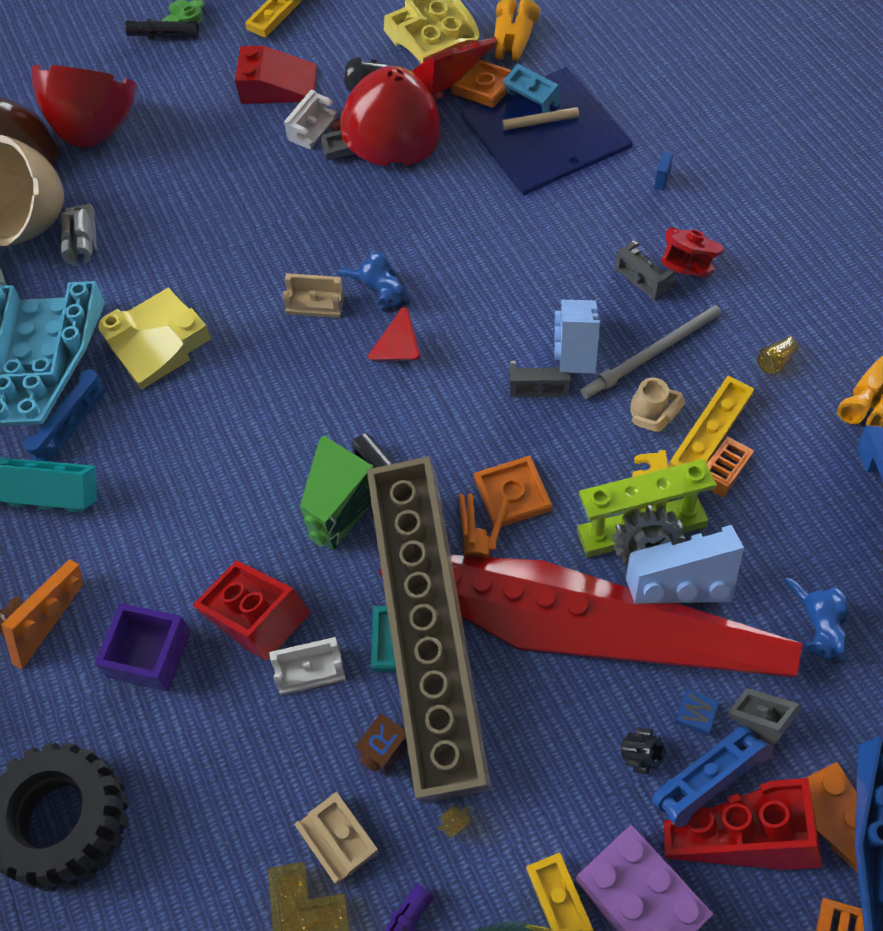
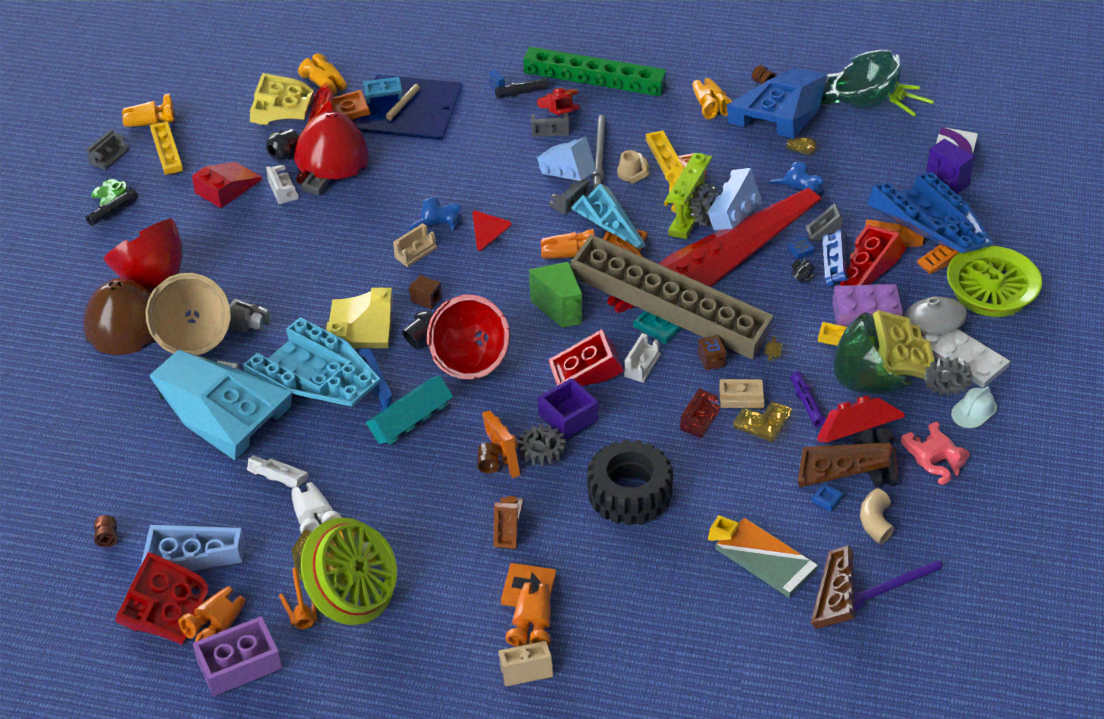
camera: 55 degrees left, 15 degrees down
(64, 673) = (541, 445): none -> dark grey gear
(164, 460) = (454, 339): none -> red piece
(176, 399) = (416, 331): none -> black piece
(244, 359) = (425, 292): none -> reddish brown brick
(257, 810) = (699, 413): none -> clear red hinge
(446, 441) = (563, 245): none -> orange piece
(542, 432) = (606, 212): none -> medium azure wedge
(670, 195) = (521, 88): none -> black pin
(776, 356) = (652, 114): clear yellow cone -> none
(790, 247) = (594, 71): none -> green brick

